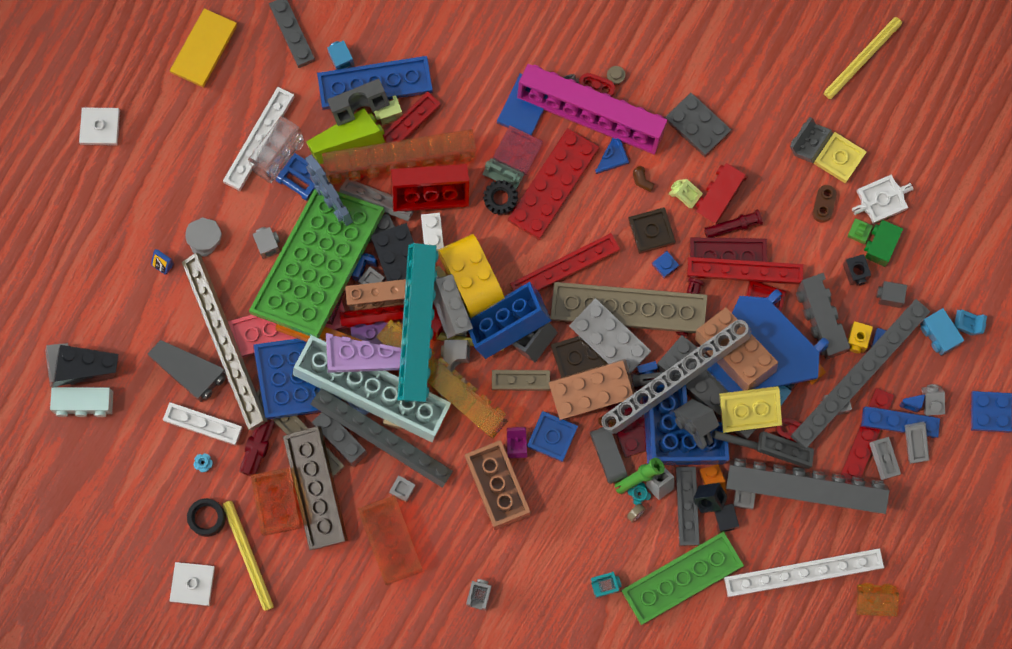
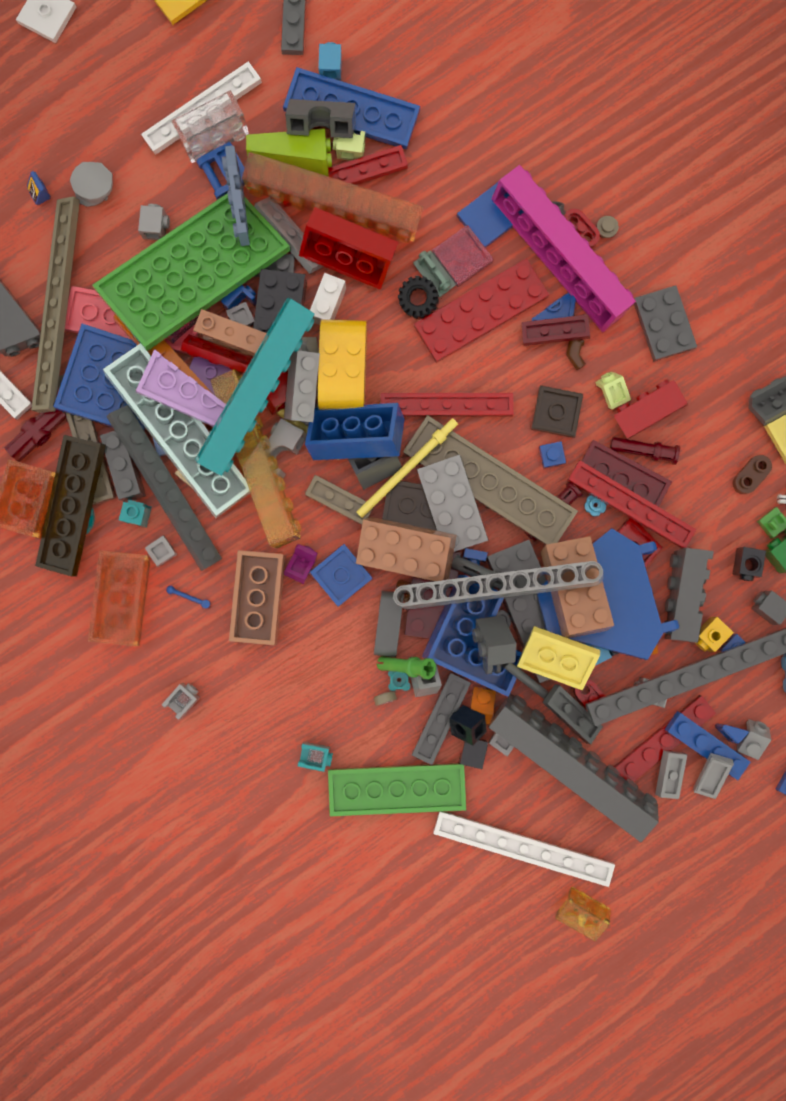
camera: 20 degrees right, 10 degrees up
(367, 468) = (135, 513): none -> teal window
(457, 513) = (204, 603): none -> blue hinge
(572, 294) = (438, 437): none -> light yellow bar
(618, 170) = (556, 330): none -> dark red plate
(718, 290) = (589, 506): none -> medium azure plate

